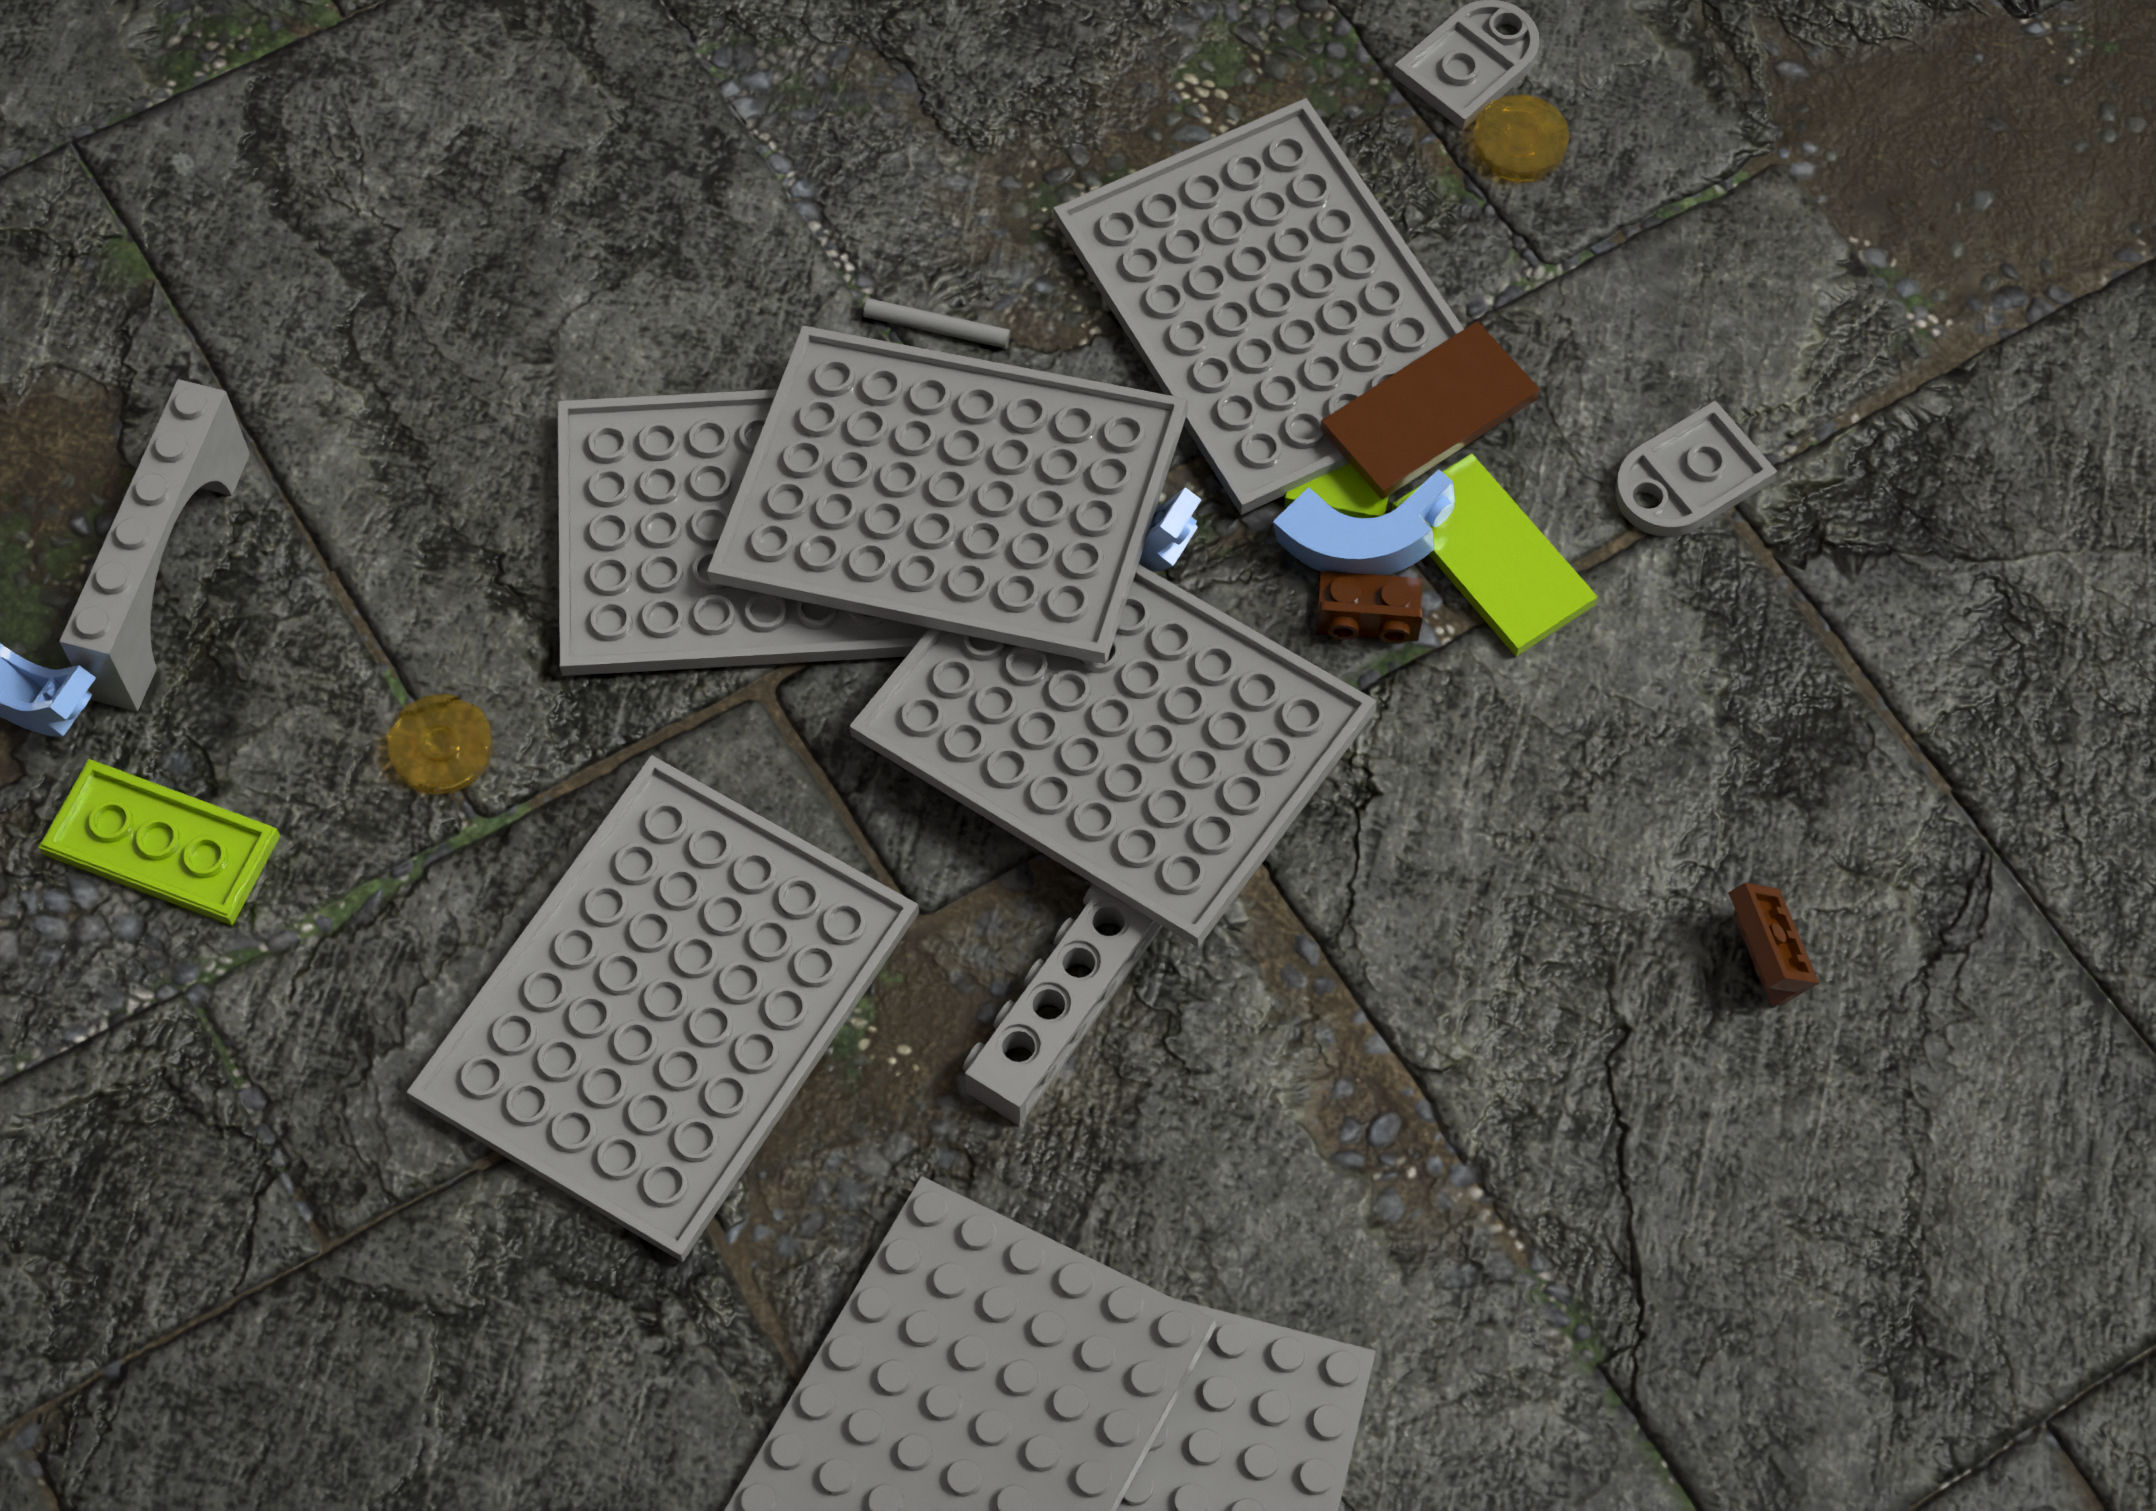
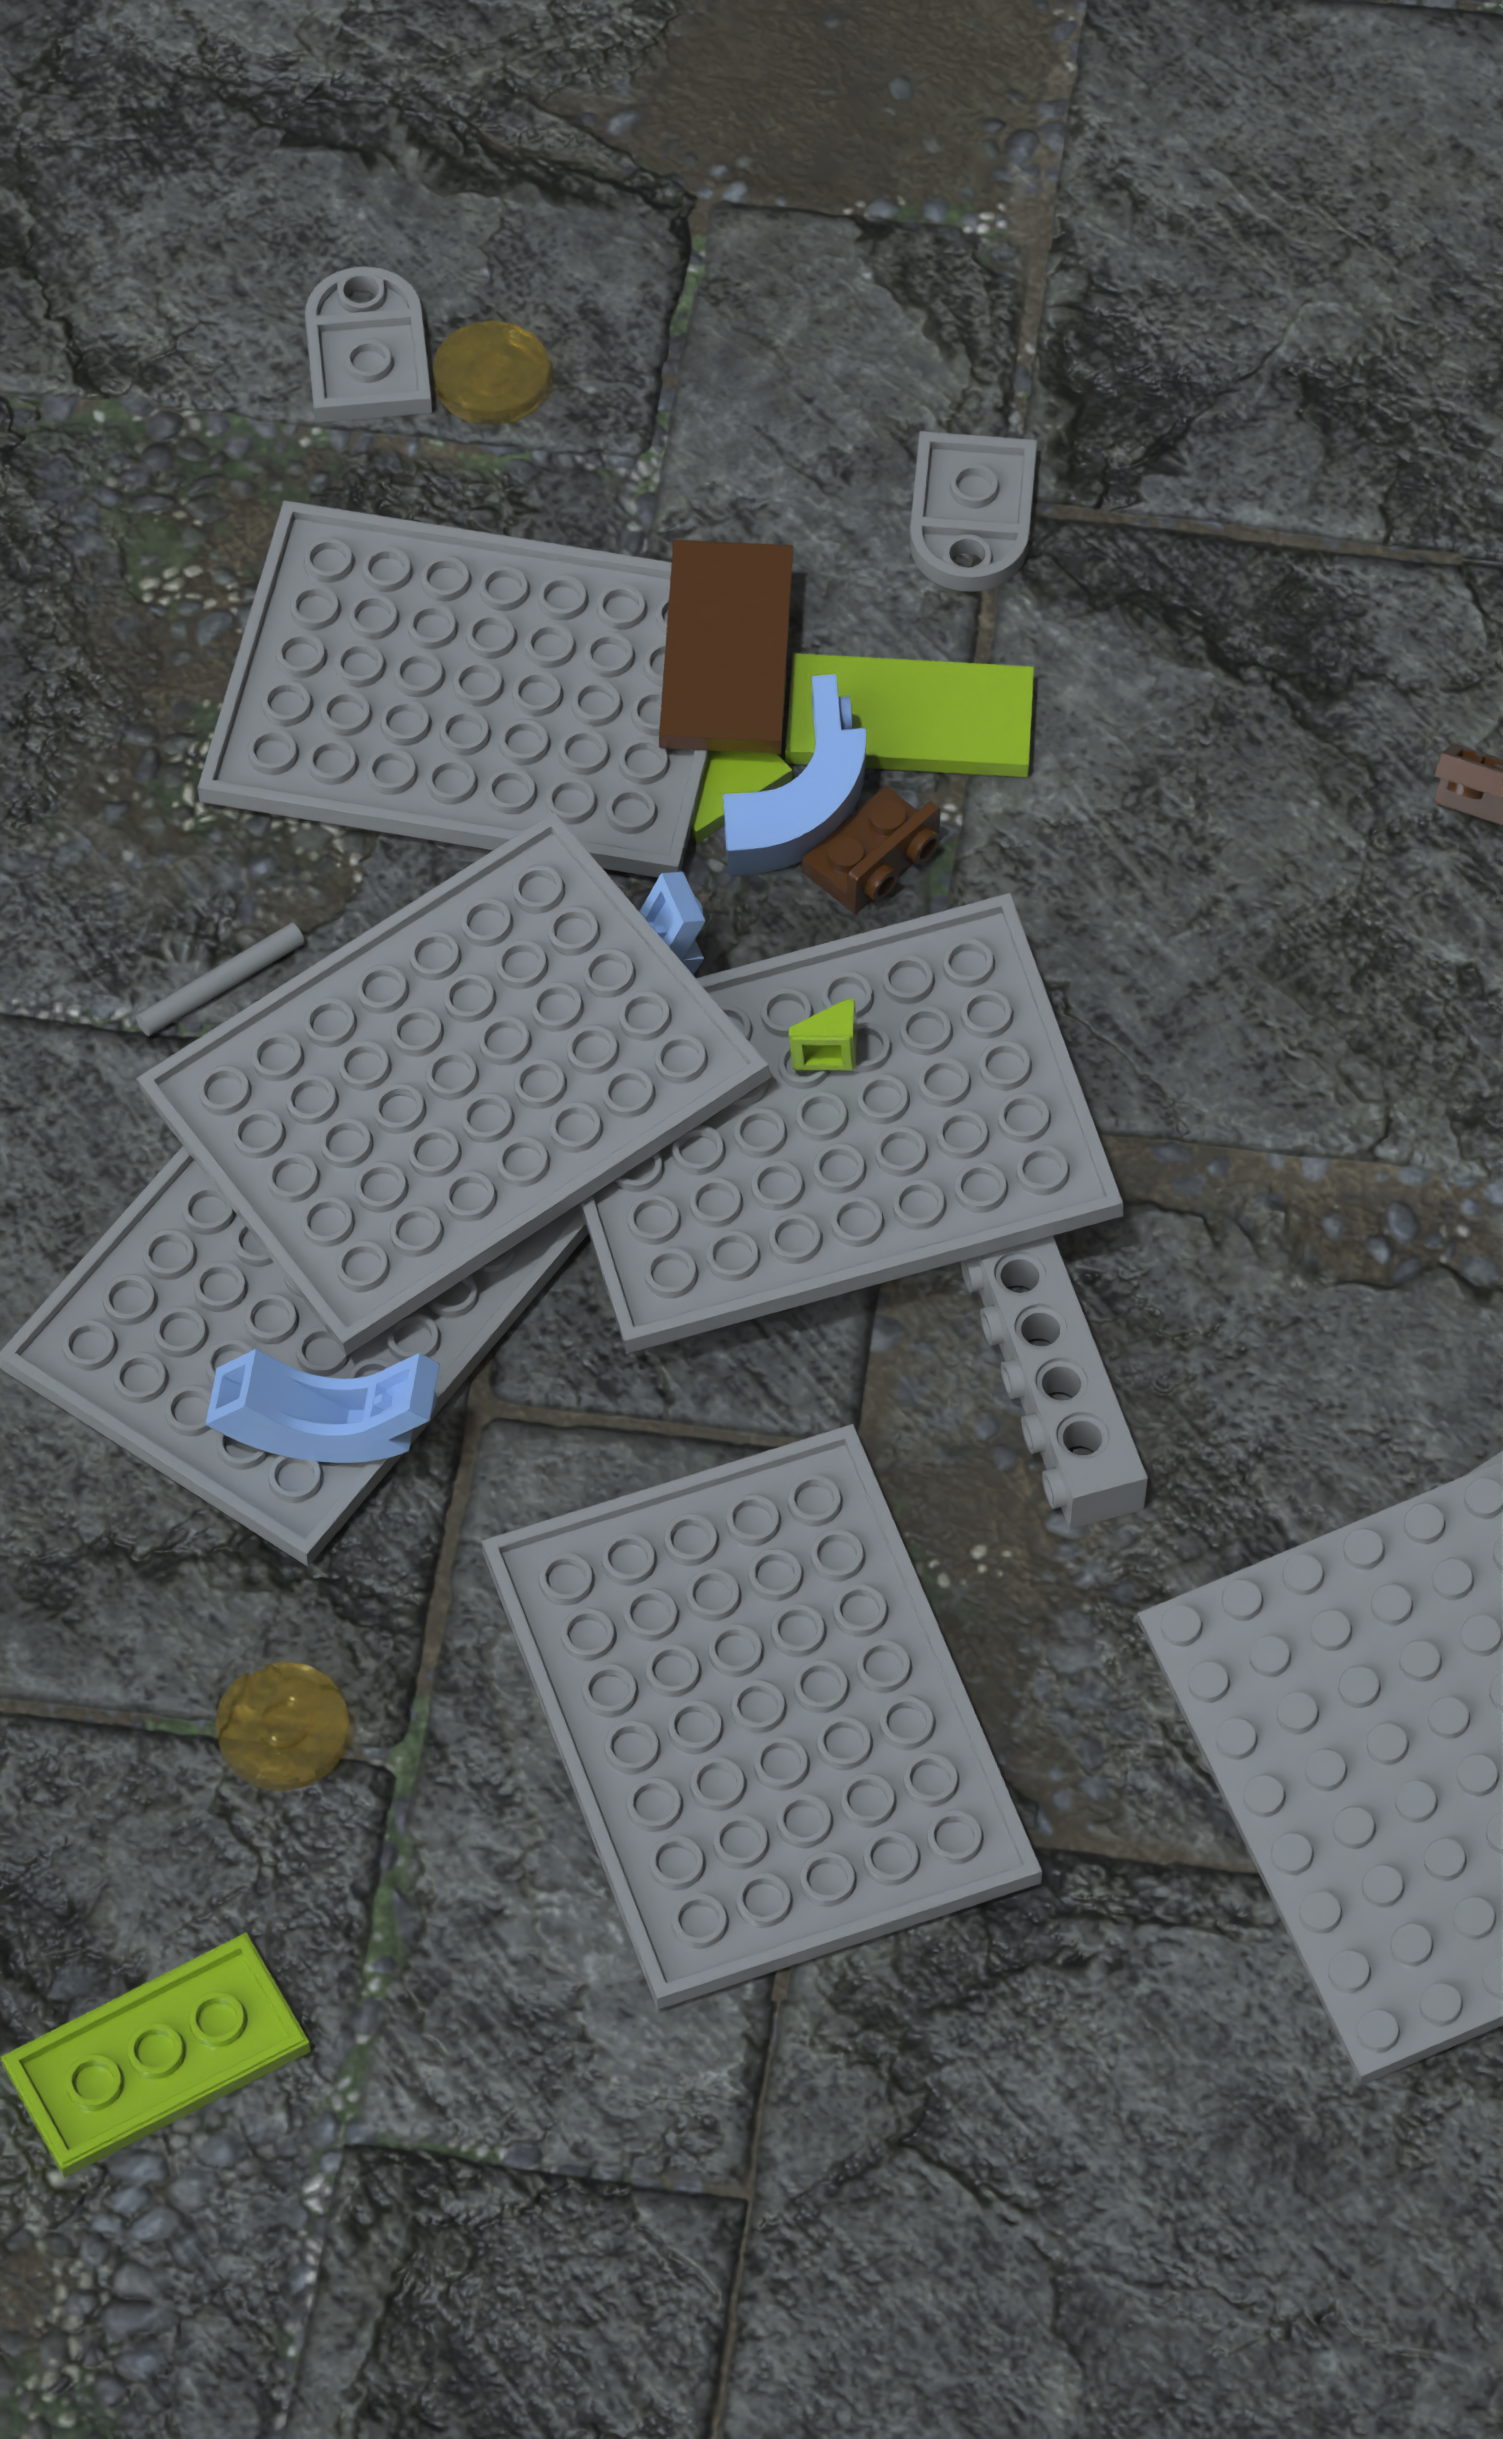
camera: 50 degrees left, 5 degrees down
(647, 592) = (319, 1416): none -> light blue arch
(1160, 674) = (826, 1039): none -> lime slope

